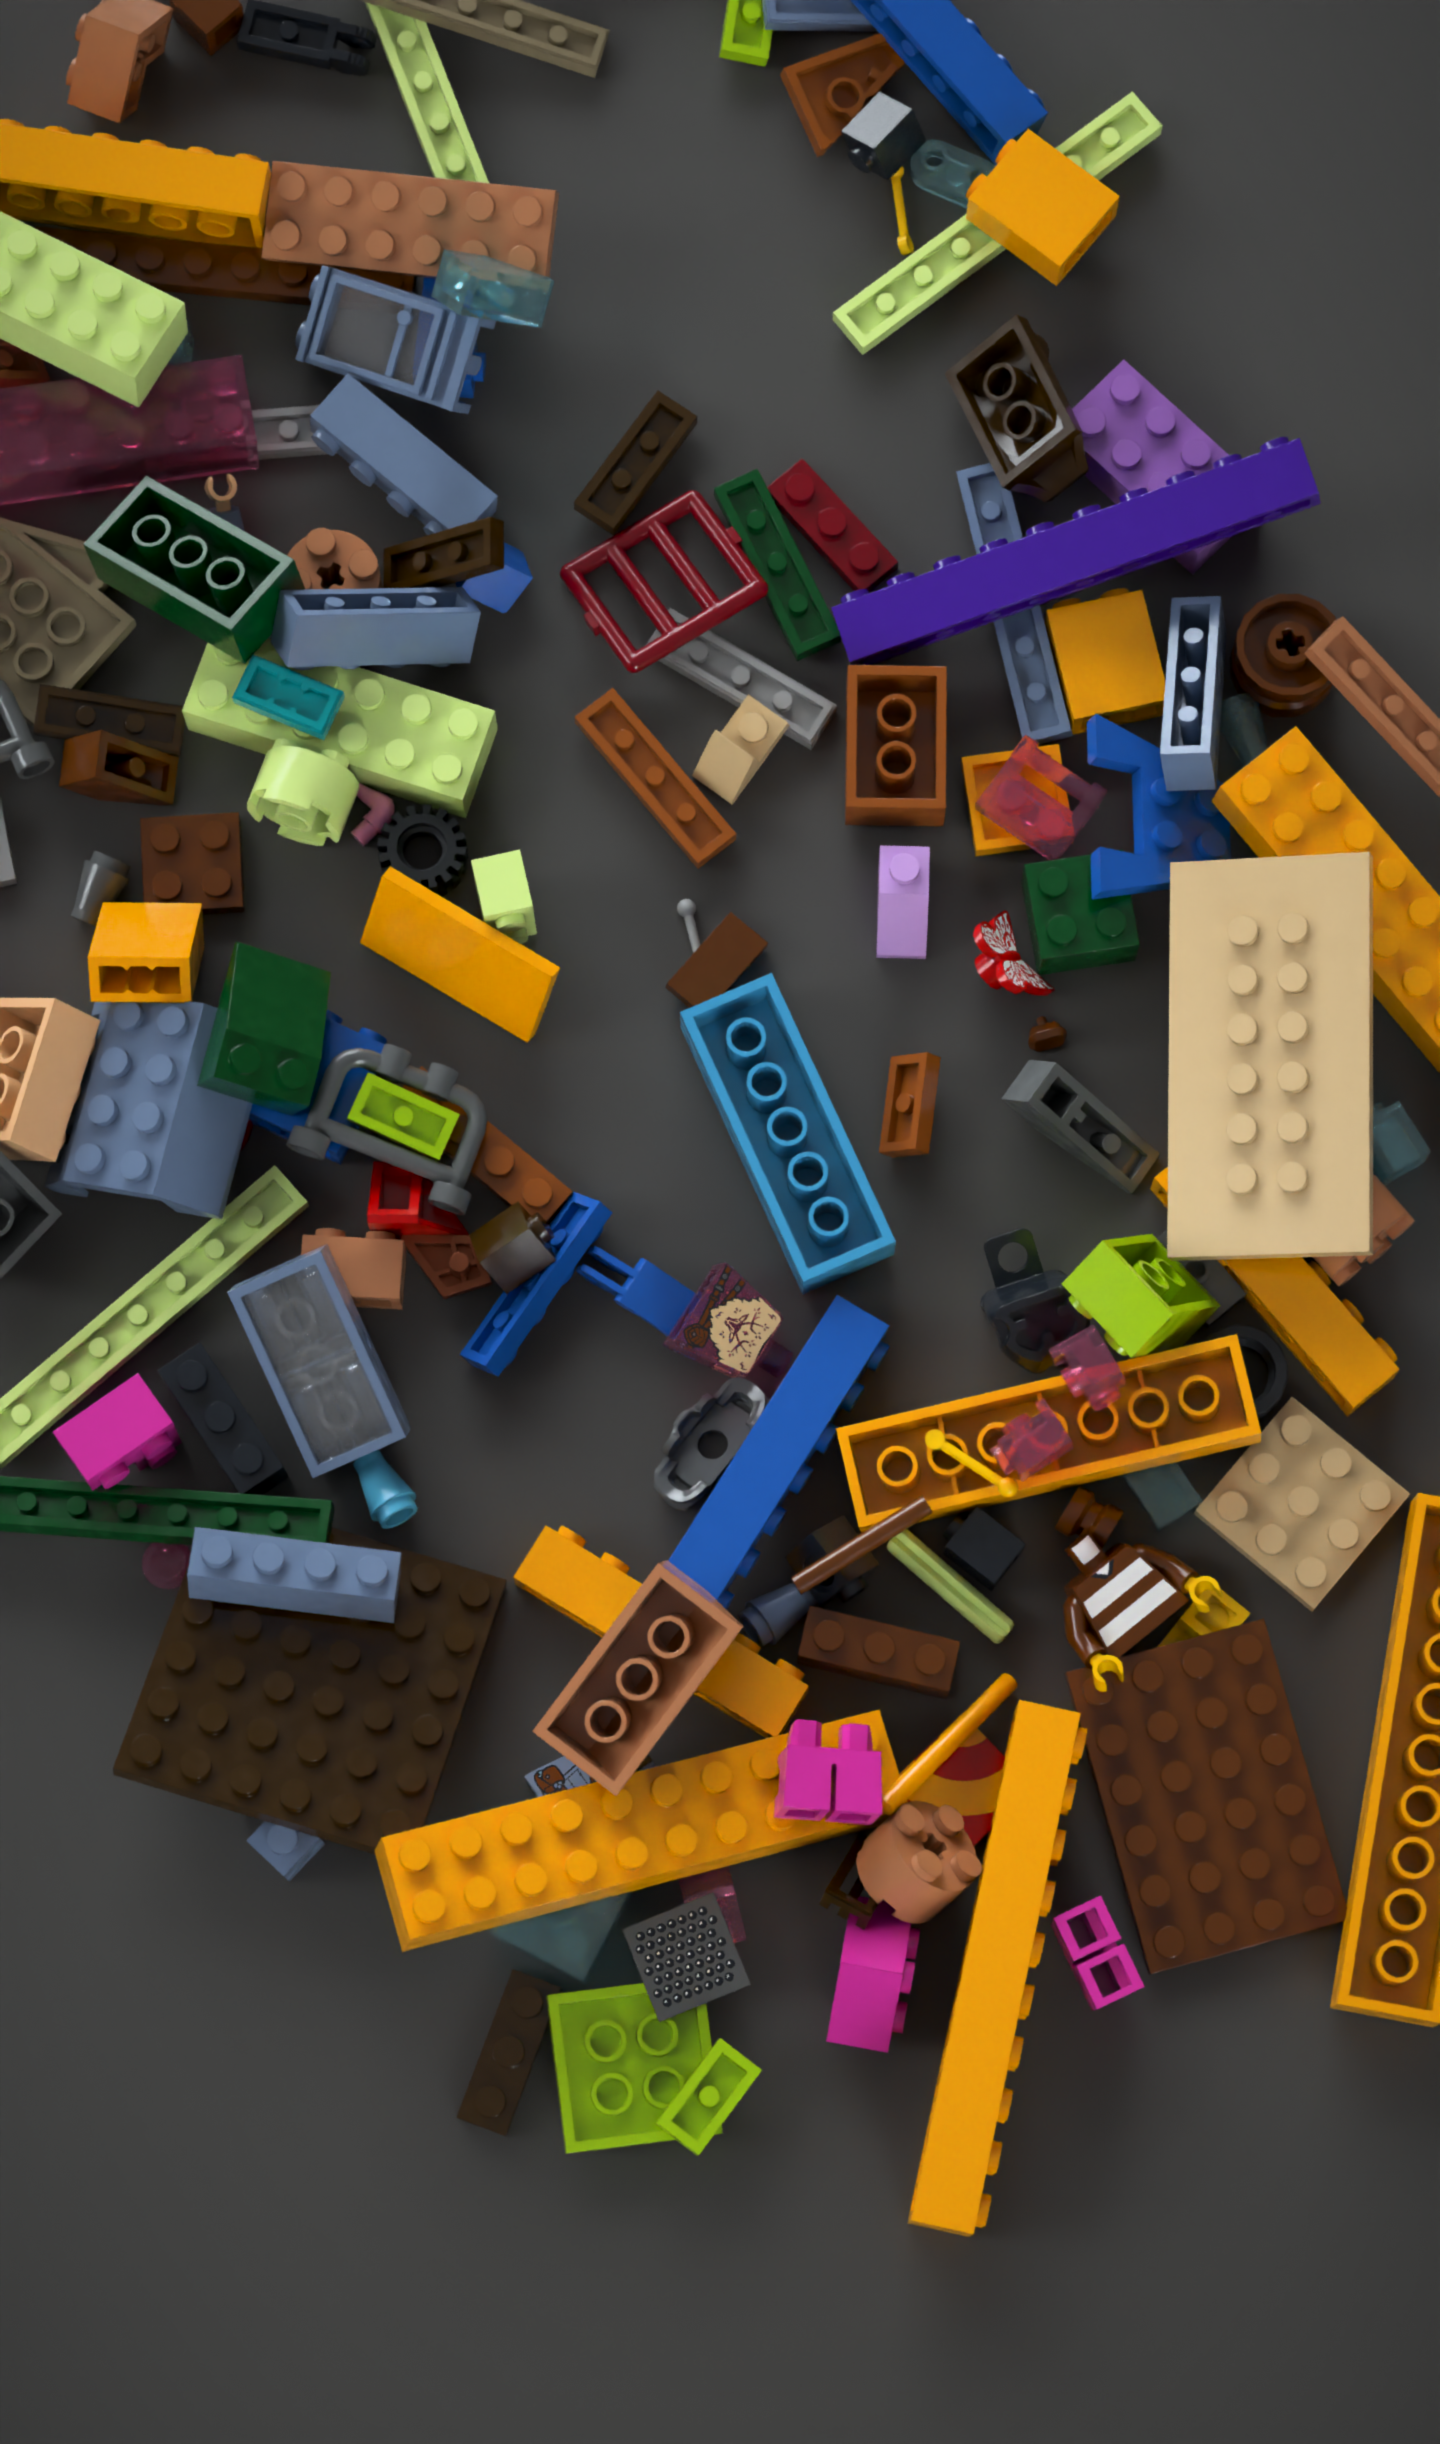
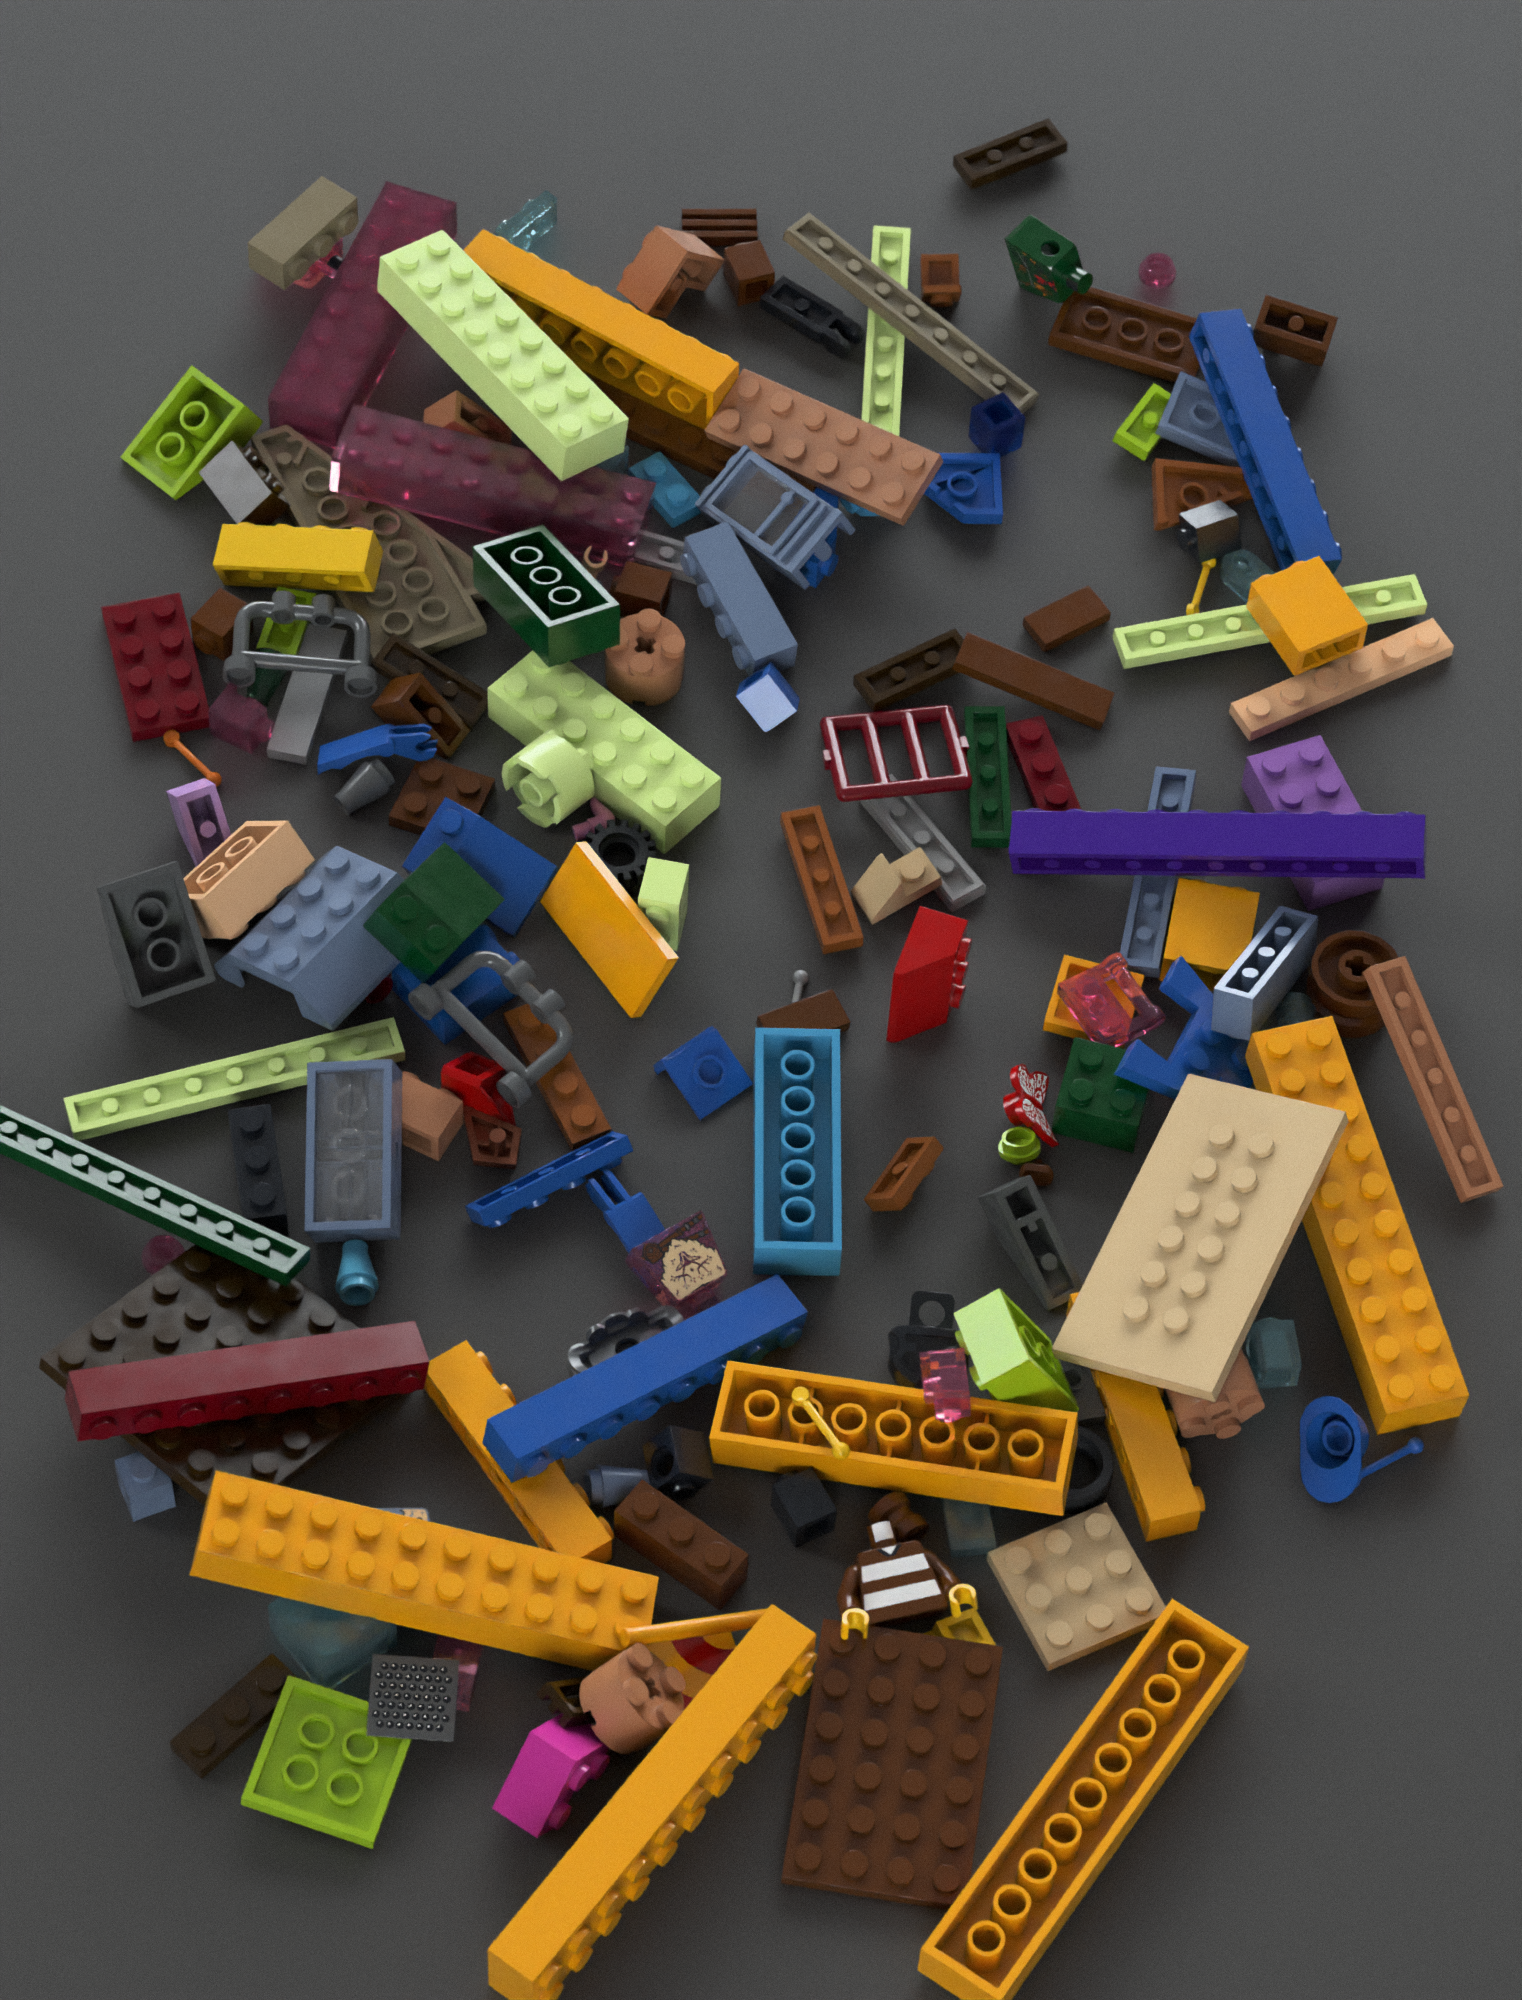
camera: 20 degrees right, 20 degrees down
(87, 831) = (380, 740): none -> blue arm
(119, 1431) = (176, 1135): dark pink brick -> none
(146, 952) = (370, 830): light orange brick -> none
(264, 351) = (673, 494): none -> dark azure plate
(284, 921) = (497, 857): none -> blue slope
(287, 499) = (641, 589): none -> reddish brown brick
(288, 697) = (570, 702): teal plate -> none
(294, 1574) = (250, 1283): sand blue brick -> none
(347, 1696) = (246, 1381): none -> dark red brick
(375, 627) = (659, 686): sand blue brick -> none
(403, 1116) = (507, 1016): lime plate -> none
(446, 556) = (735, 666): dark brown plate -> none
(491, 289) = (861, 500): clear light blue slope -> none
(513, 1246) = (545, 1141): dark brown brick -> none
(586, 103) = (996, 426): none -> clear blue brick
(591, 190) = (969, 487): none -> blue plate
(637, 1074) = (705, 1072): none -> blue piece
(639, 1677) = (474, 1441): nougat slope -> none
(708, 2097) = (375, 1803): lime plate -> none
(771, 317) = (1066, 618): none -> reddish brown tile
(773, 420) = (1033, 681): none -> reddish brown tile
(829, 1781) = (610, 1591): dark pink hips -> none
(837, 859) = (928, 974): none -> red slope
(861, 1545) = (704, 1446): reddish brown bar -> none
(895, 745) = (1019, 923): dark orange brick -> none
(902, 902) = (969, 1033): lavender slope -> none
(950, 1586) = (763, 1526): yellowish green axle -> none
(1016, 1014) = (1019, 1145): none -> lime plate
(1020, 412) = (1223, 739): dark brown slope -> none
(1031, 1442) = (874, 1422): clear pink brick -> none
(1091, 1949) = (742, 1830): dark pink hips -> none
(1119, 248) = (1341, 679): none -> light nougat plate

